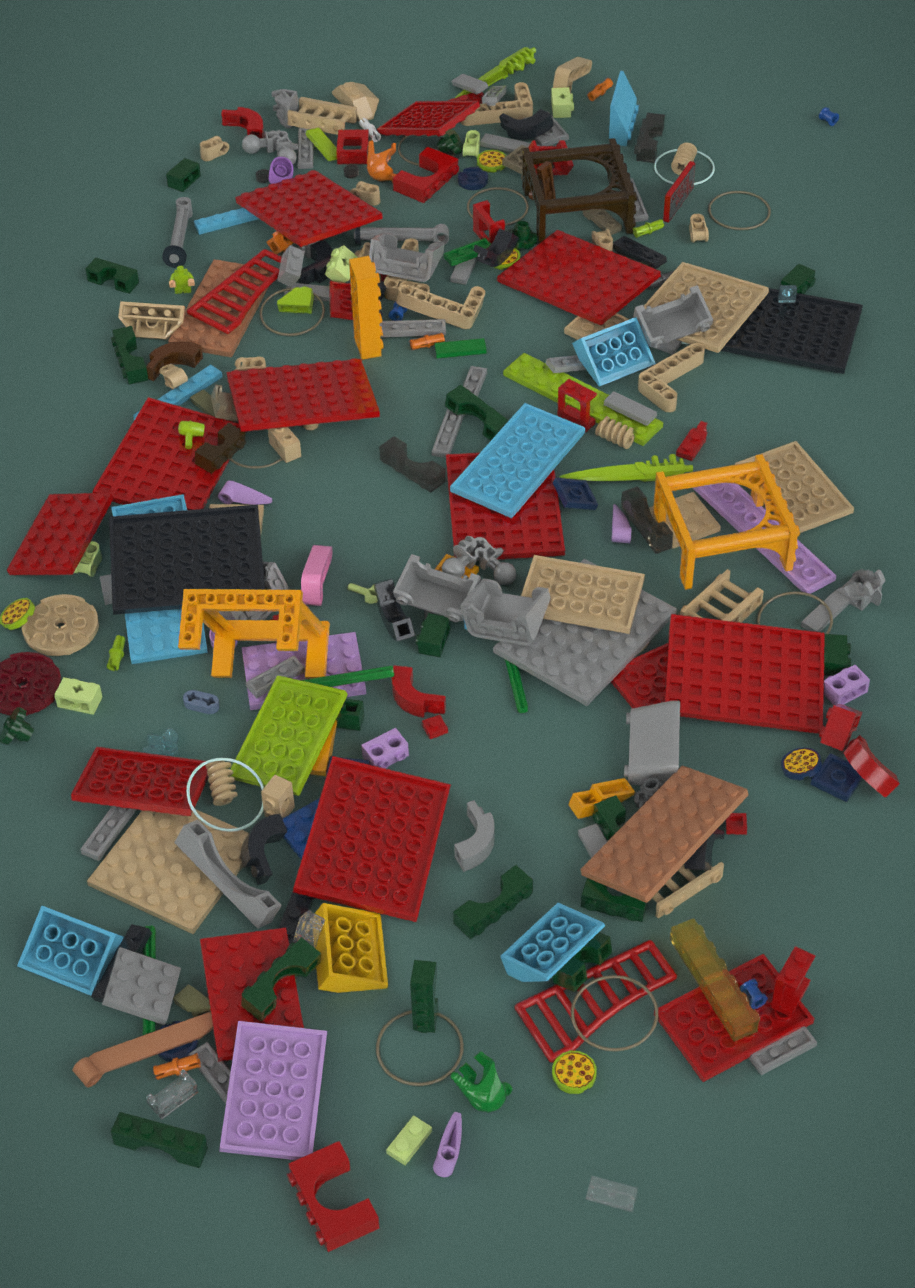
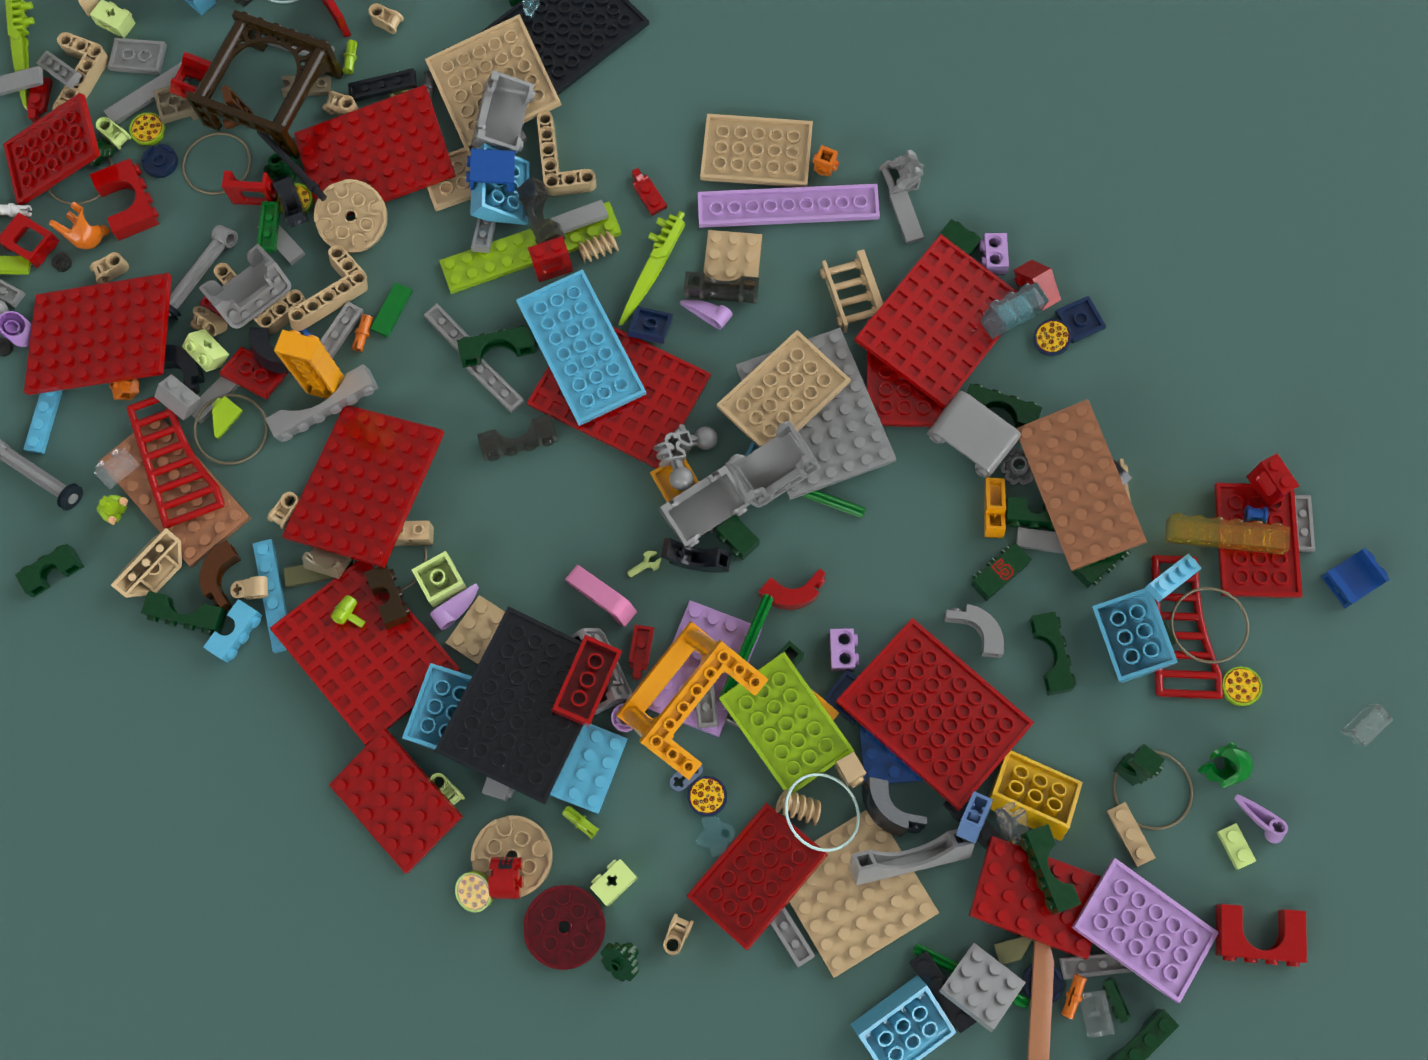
camera: 55 degrees left, 25 degrees up
(36, 616) = (505, 878): none -> red brick
(57, 758) = (677, 933): none -> tan piece
(120, 389) = (245, 620): none -> medium azure arch
(192, 723) = (707, 796): none -> tile
(194, 1102) = (1119, 1007): none -> dark green plate
(213, 265) = (116, 468): none -> clear bracket
(230, 573) = (586, 681): none -> red brick
(258, 471) = (439, 579): none -> yellowish green brick
(291, 897) = (974, 817): none -> medium blue brick
(362, 1046) = (1130, 834): none -> tan plate
(376, 351) = (355, 385): none -> light grey arch
(434, 726) = (836, 594): red plate -> none
(517, 248) = (312, 185): none -> black bar
(520, 271) = (369, 213): none -> tan plate
(527, 128) = (131, 71): black arch -> none
(543, 828) = (1000, 571): none -> dark green brick
(618, 373) = (533, 197): none -> clear smoke arch
(621, 332) = (491, 167): none -> blue panel
(632, 947) = (1173, 577): none -> medium azure plate
(695, 739) = (1020, 410): none -> dark green arch
(759, 1120) = (1355, 577): none -> blue panel
(763, 487) = (753, 183): light orange arch -> none
(794, 710) = (1014, 309): none -> clear light blue brick
(801, 593) = (888, 214): dark tan piece -> none
(823, 531) = (825, 161): none -> orange brick
(870, 767) = (1085, 292): red arch -> none

